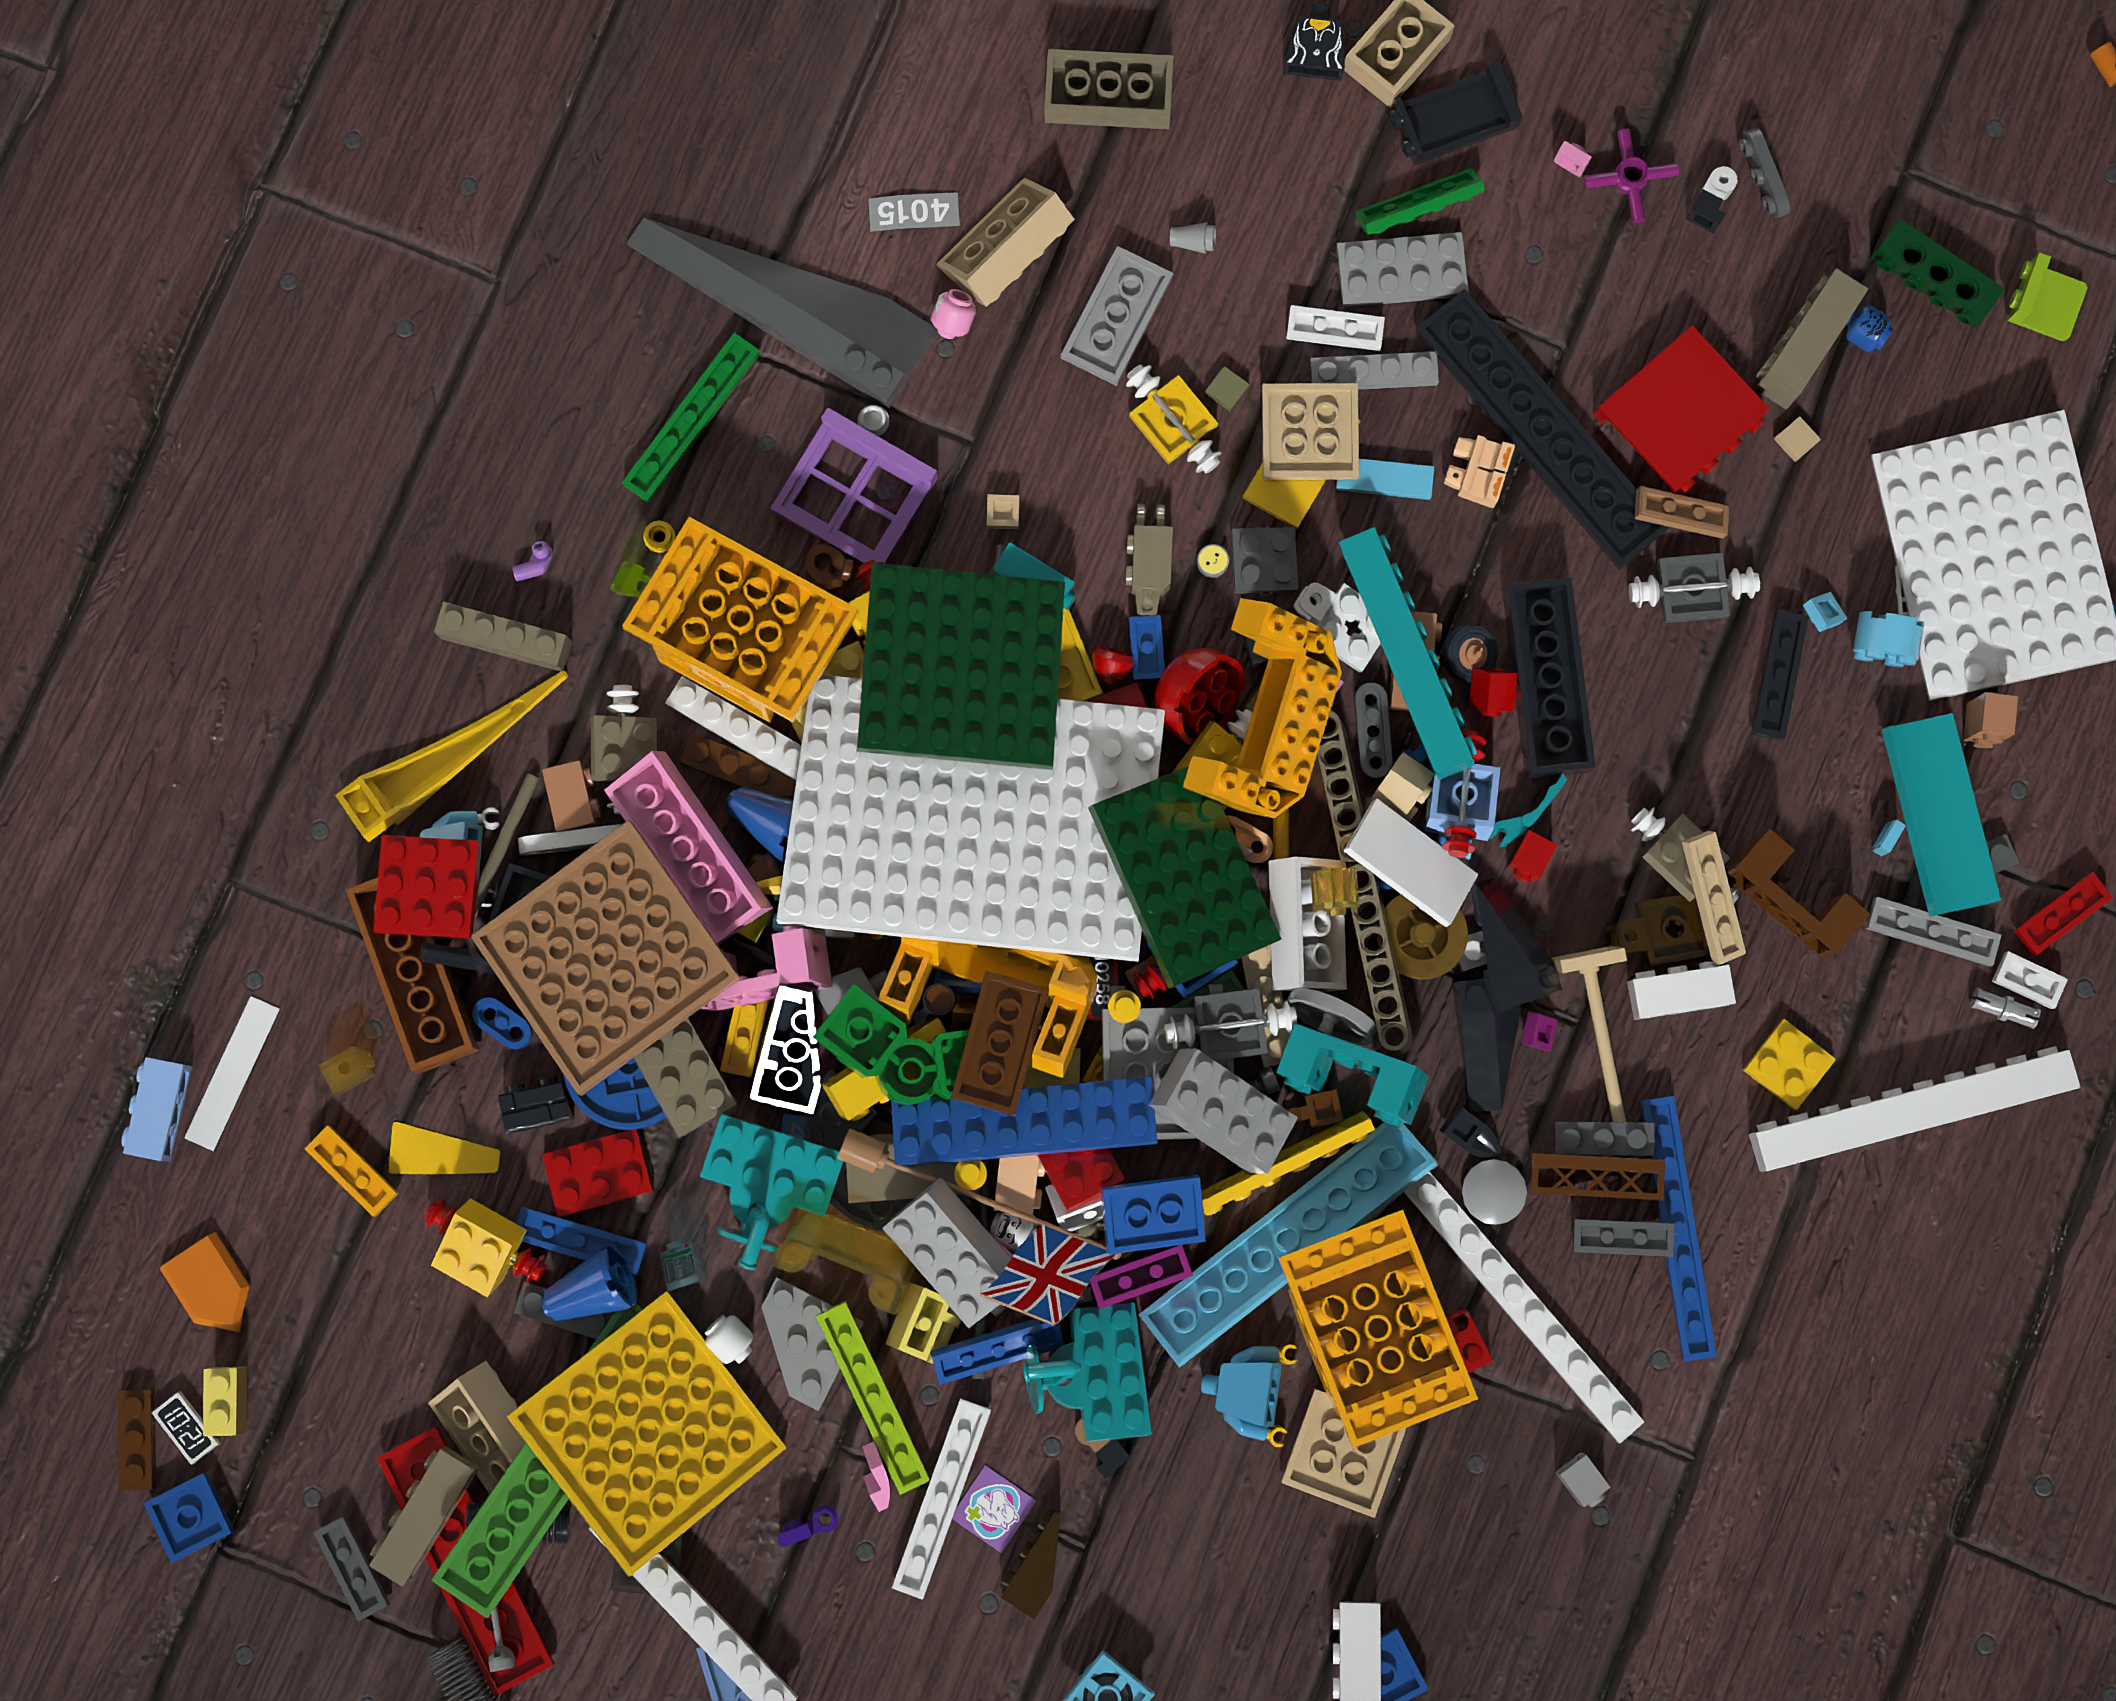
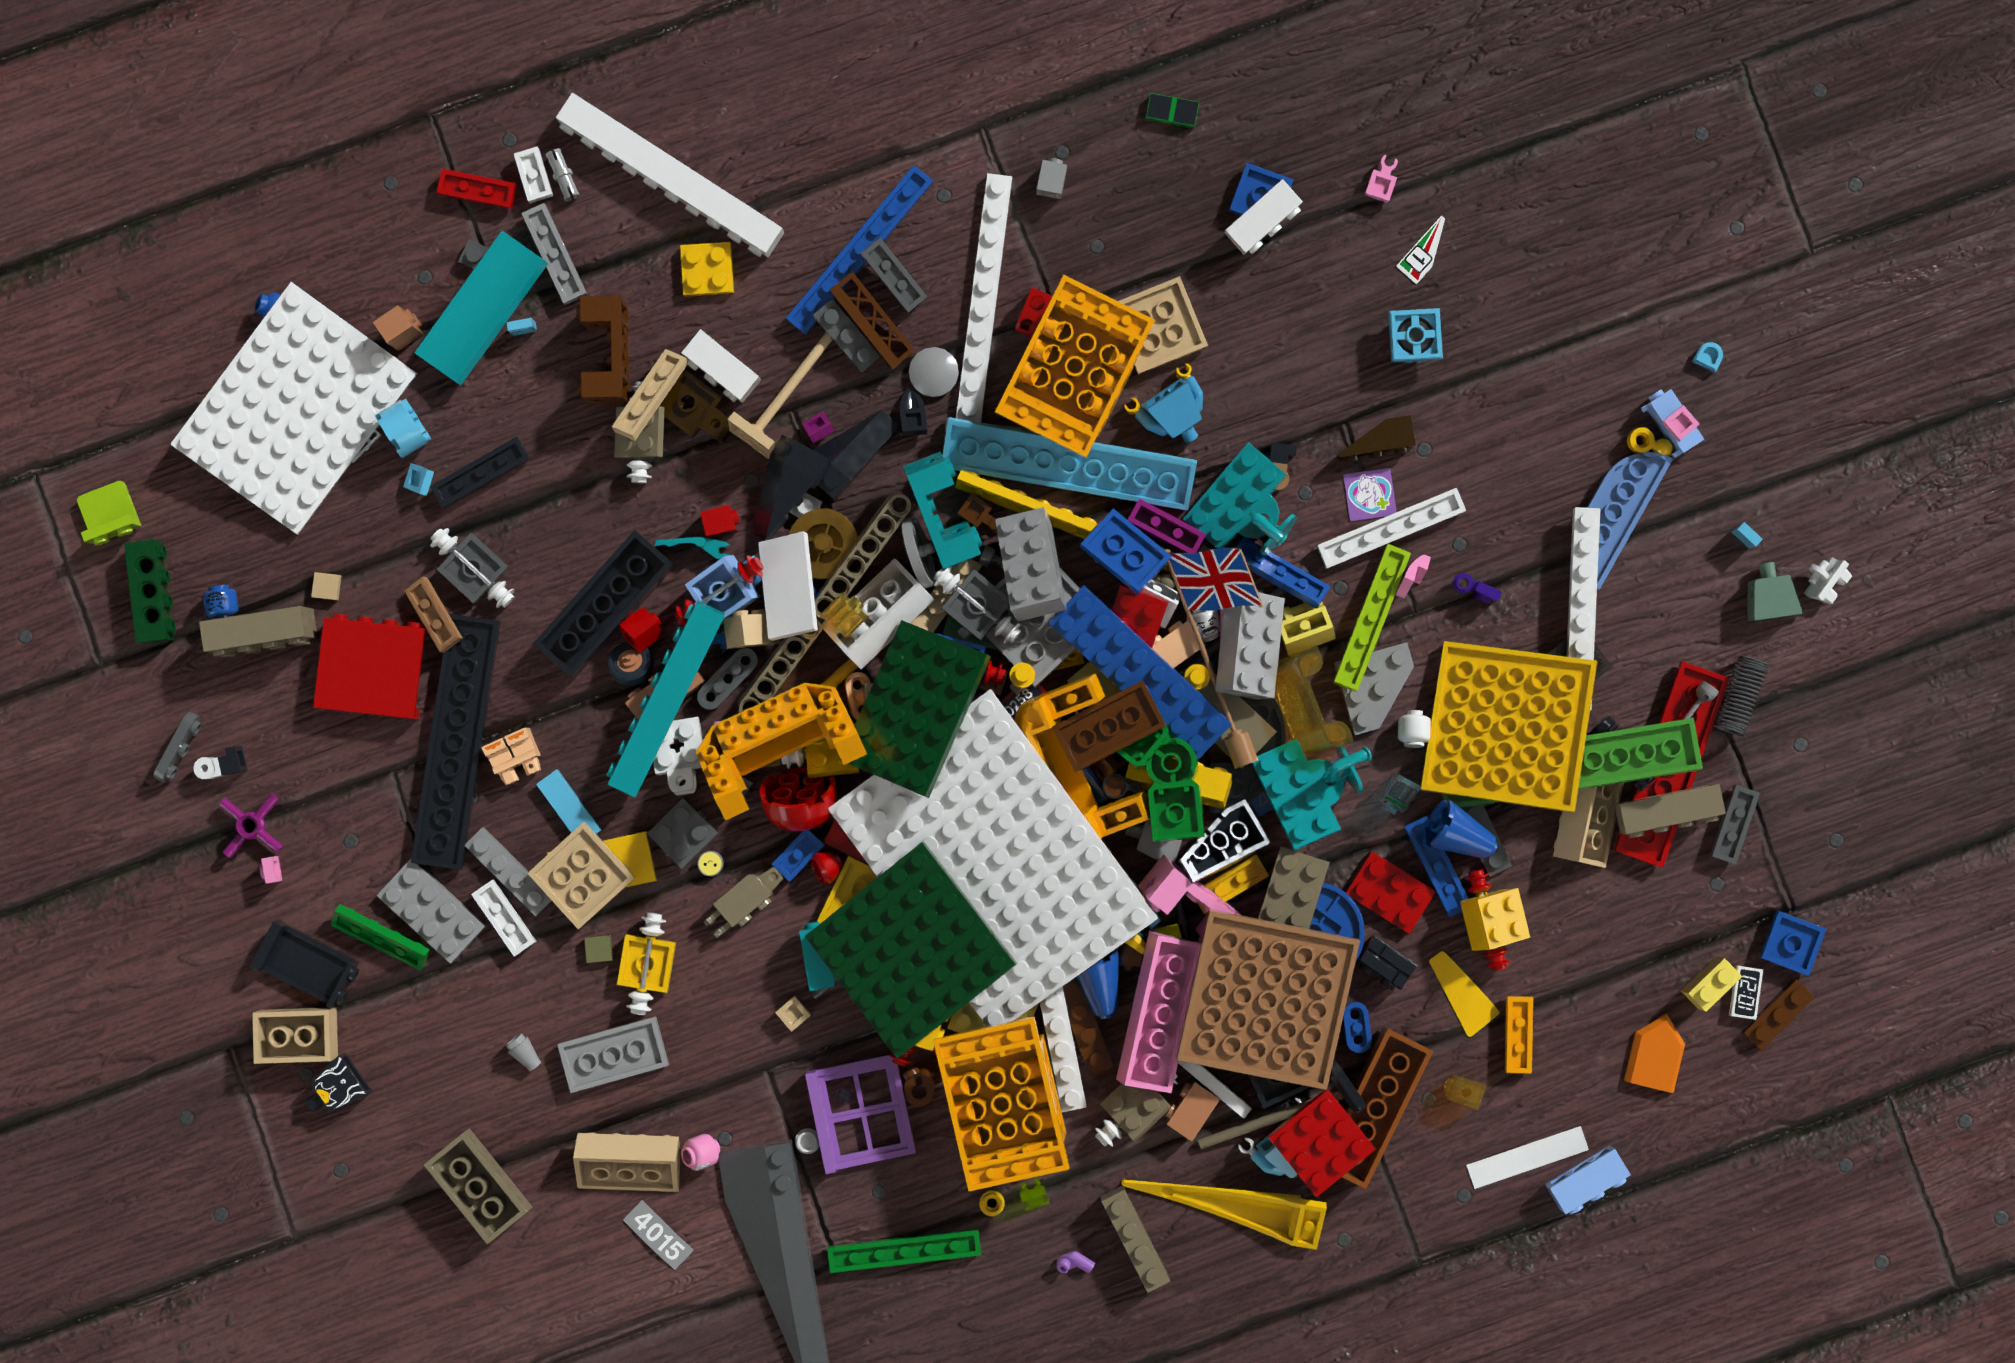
camera: 130 degrees left, 5 degrees up
(1546, 1664) = (1172, 110): none -> black tile

